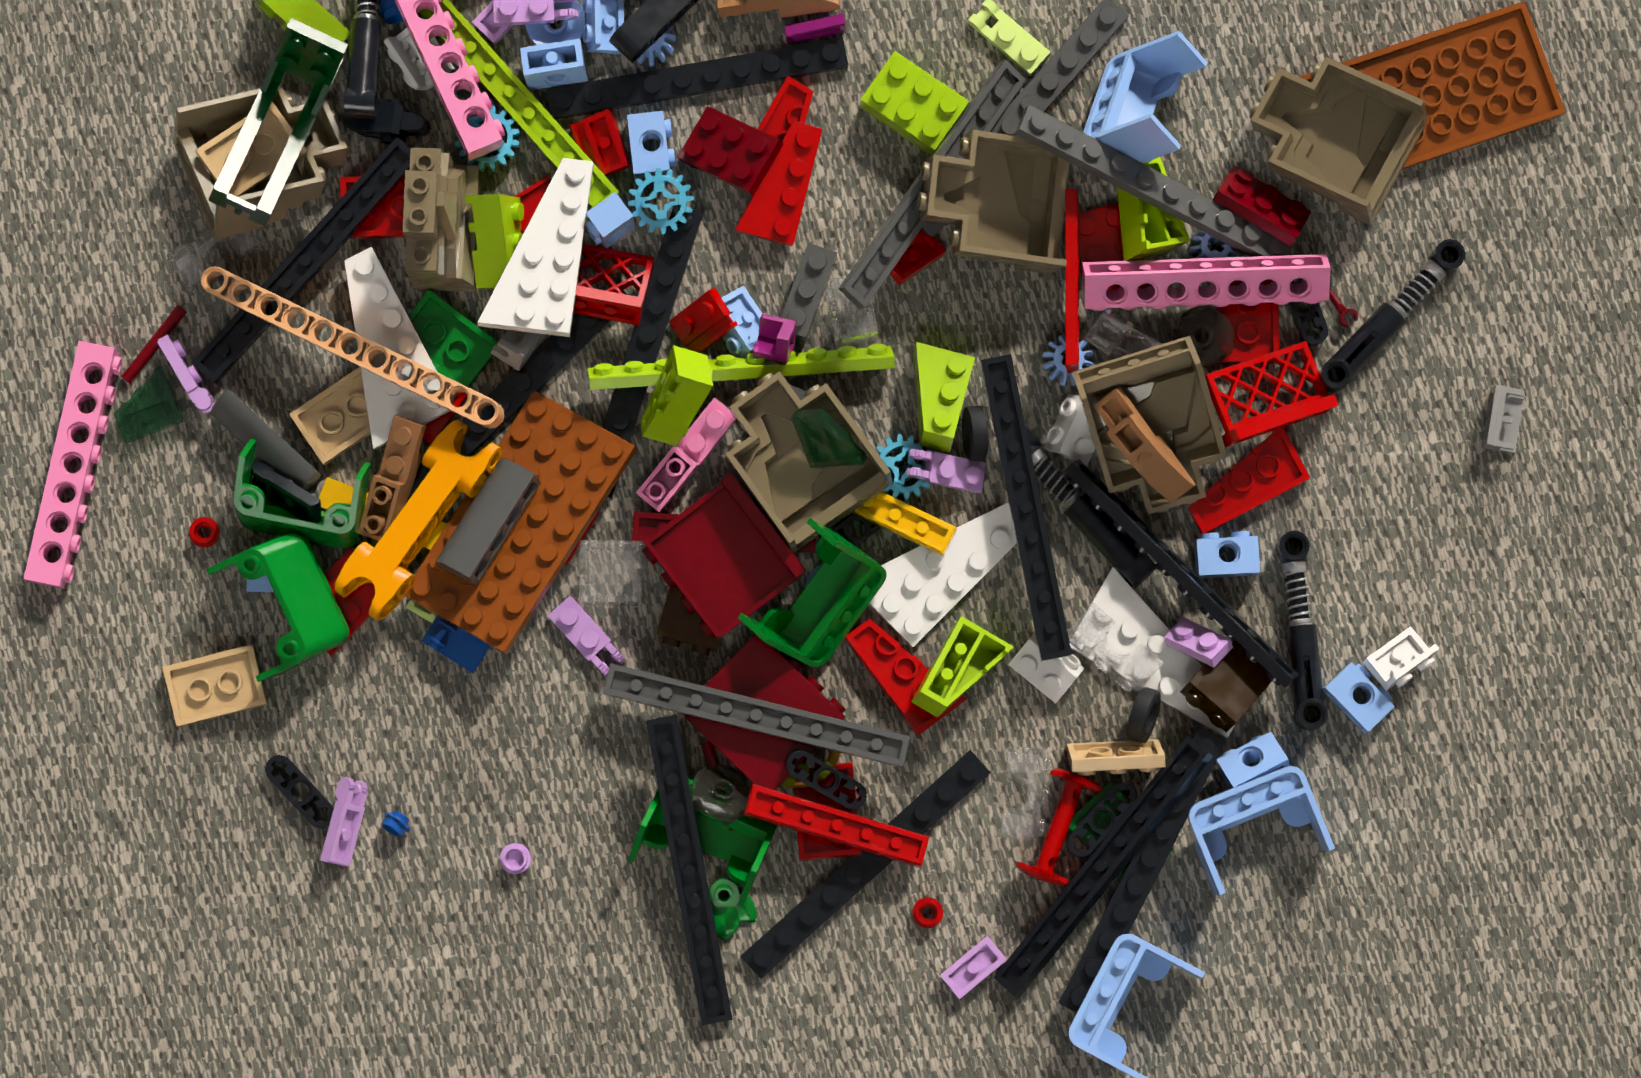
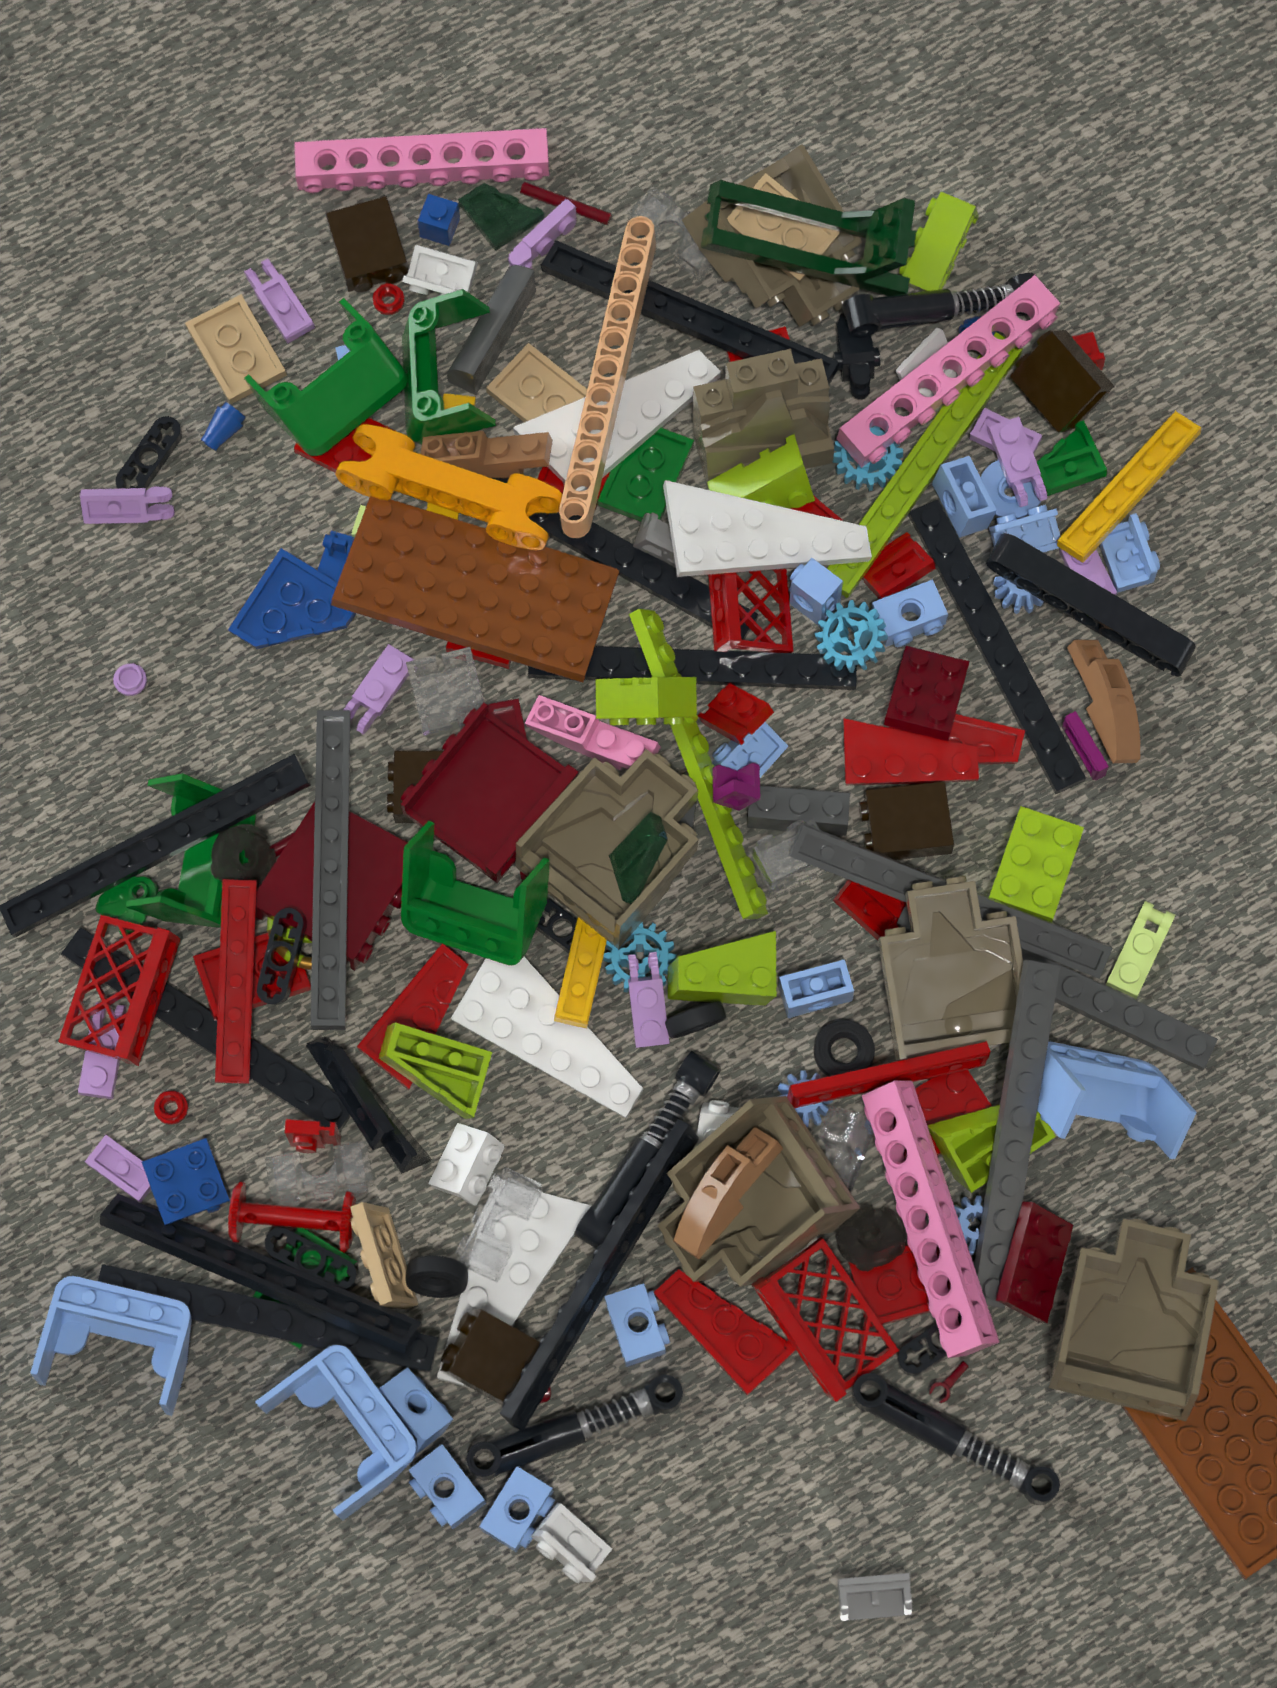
camera: 80 degrees right, 10 degrees down
(140, 464) = (438, 219): none -> blue brick
(145, 537) = (367, 244): none -> dark brown brick
(179, 633) = (280, 303): none -> lavender hinge
(195, 477) = (439, 272): none -> white bracket
(286, 493) = (444, 355): black hinge -> none
(289, 715) = (222, 426): none -> blue cone
(395, 823) = (138, 555): blue plate -> none
(486, 695) = (289, 605): none -> blue plate
(488, 521) = (464, 552): dark grey brick -> none
(824, 908) = (146, 990): none -> red fence
(842, 202) = (908, 821): none -> dark brown brick
(863, 963) = (100, 1071): none -> lavender hinge
(974, 322) = (816, 988): none -> light blue brick
(975, 740) = (366, 1108): none -> black wedge
(992, 796) = (311, 1135): none -> red plate
(1002, 913) = (185, 1182): none -> blue hinge
(1026, 508) = (626, 1089): black plate -> none
(1035, 296) = (839, 1030): none -> black tyre
(1198, 642) = (530, 1313): lavender plate -> none
(1341, 743) = (440, 1467): none -> light blue brick

